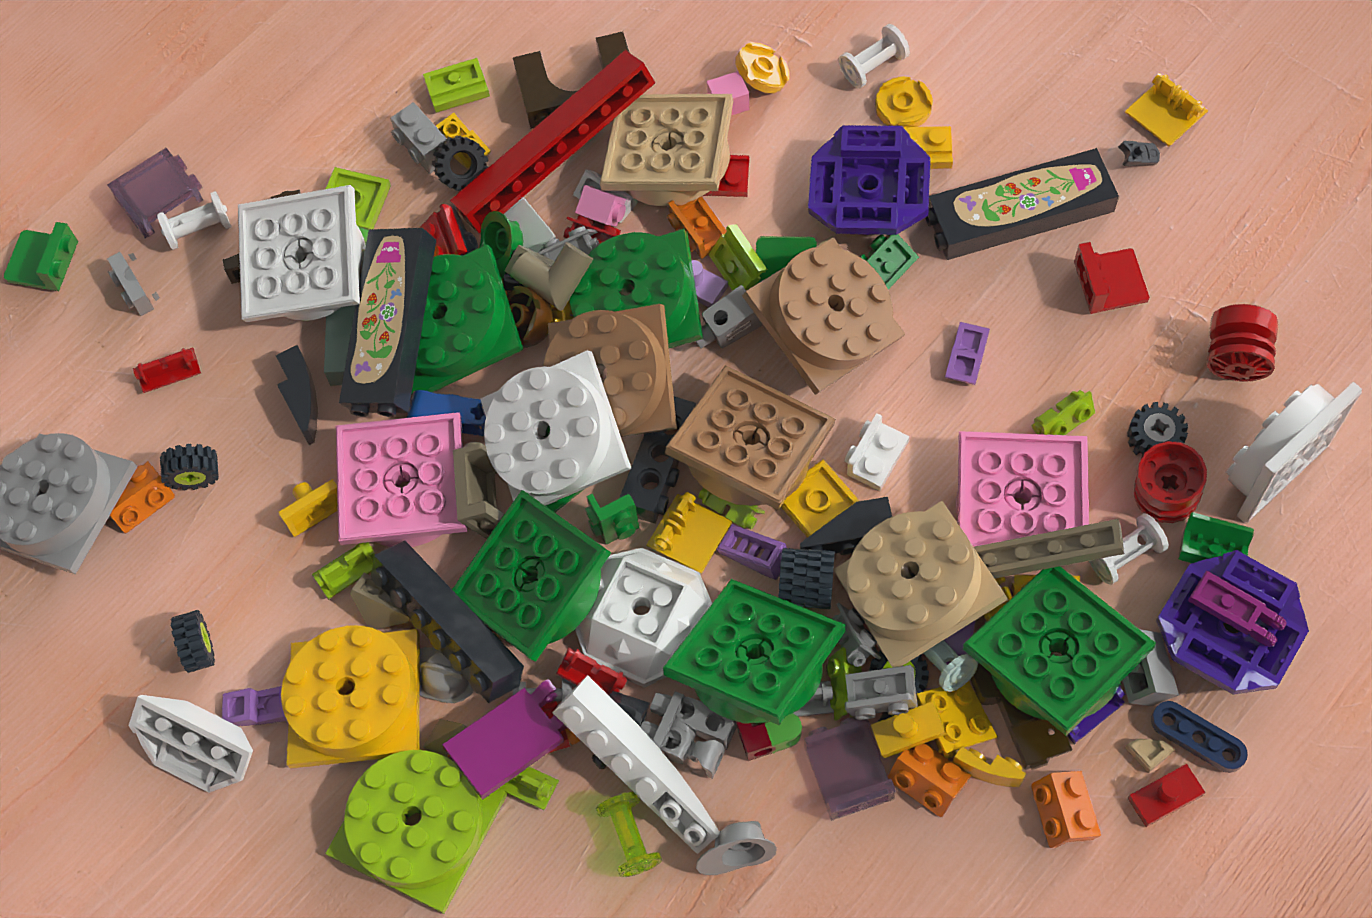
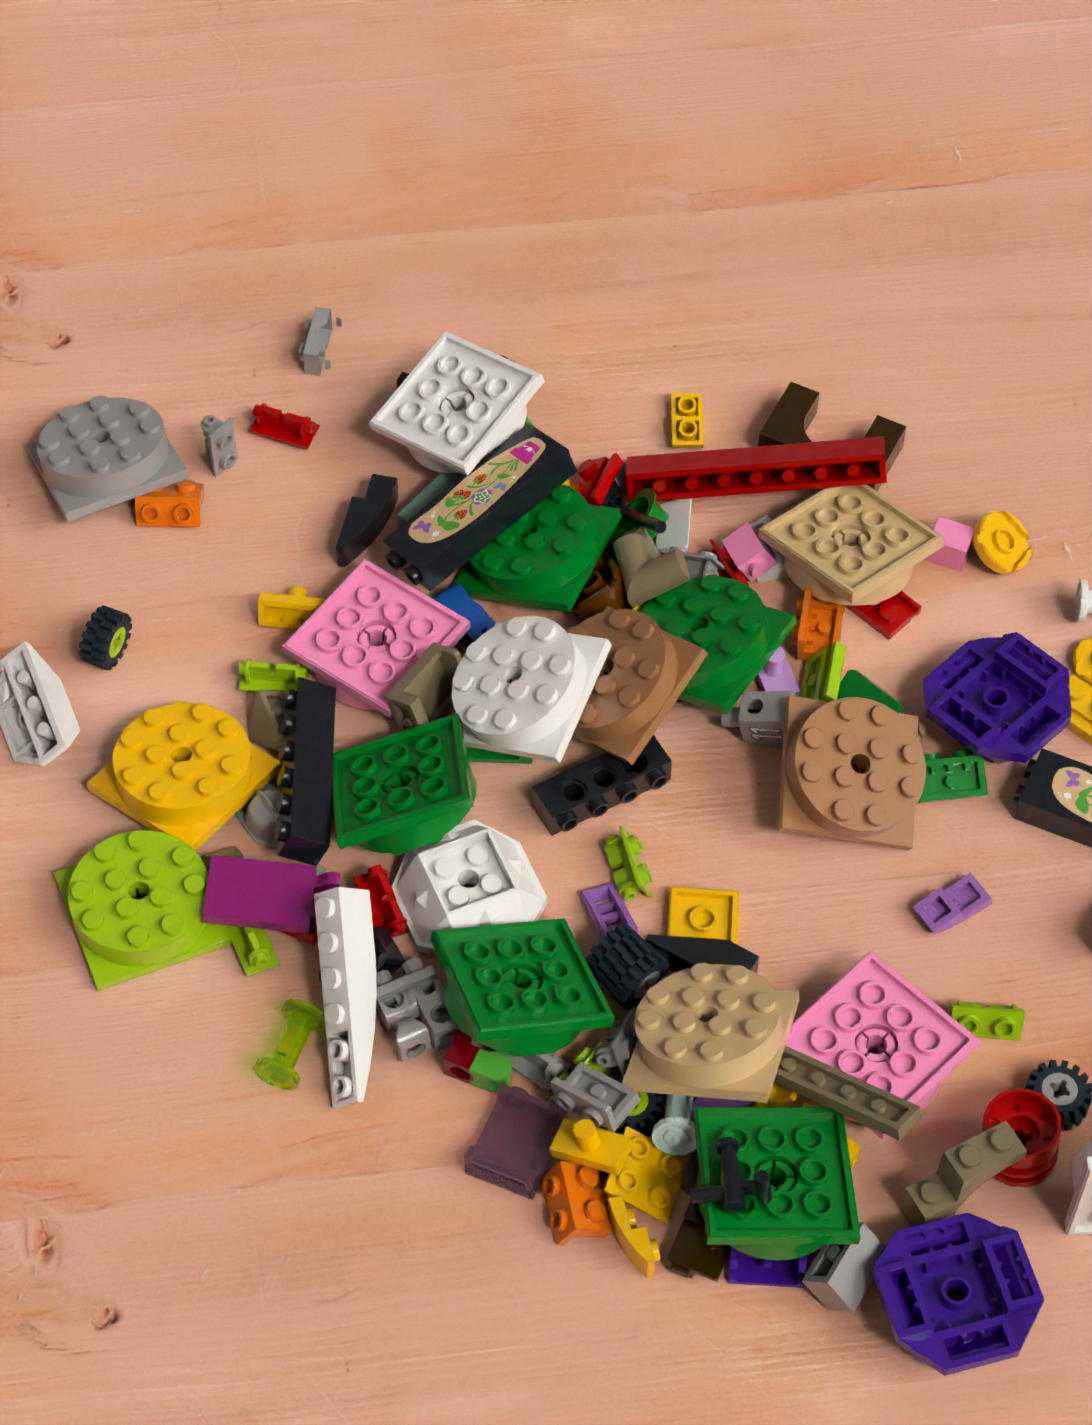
camera: 35 degrees right, 10 degrees down
(42, 258) = (271, 274): green bracket -> none
(134, 421) = (219, 443): none -> light grey hinge
(154, 188) = (404, 282): clear purple panel -> none
(189, 467) = (227, 508): black wheel -> none
(193, 220) = (408, 326): white hose -> none
(253, 707) = (101, 722): medium lavender slope -> none
(369, 194) = (559, 404): lime plate -> none
(417, 134) = (654, 395): light grey brick -> none
(448, 150) = (664, 414): black tyre -> none
(456, 85) = (726, 373): lime plate -> none
(509, 240) = (641, 519): none -> black bar
(613, 520) = (514, 797): green bracket -> none
(689, 533) = (570, 862): yellow hinge -> none
(735, 848) = (363, 1125): light grey piece -> none
(749, 440) = (683, 821): medium nougat piece -> none
(876, 453) = (789, 920): white bracket -> none
(1050, 682) = (732, 1186): none -> black piece
(1065, 808) = (666, 1321): orange bracket -> none
(1149, 752) = (786, 1341): tan tile -> none
(1154, 537) = (911, 1161): white hose -> none
(1165, 543) = (961, 1174): none -> dark tan arch
(1166, 795) = (765, 1385): red tile -> none
(1211, 537) = (1018, 1211): green bracket -> none
(1214, 738) = (841, 1347): dark blue plate -> none
(1236, 608) = (967, 1274): magenta hinge -> none

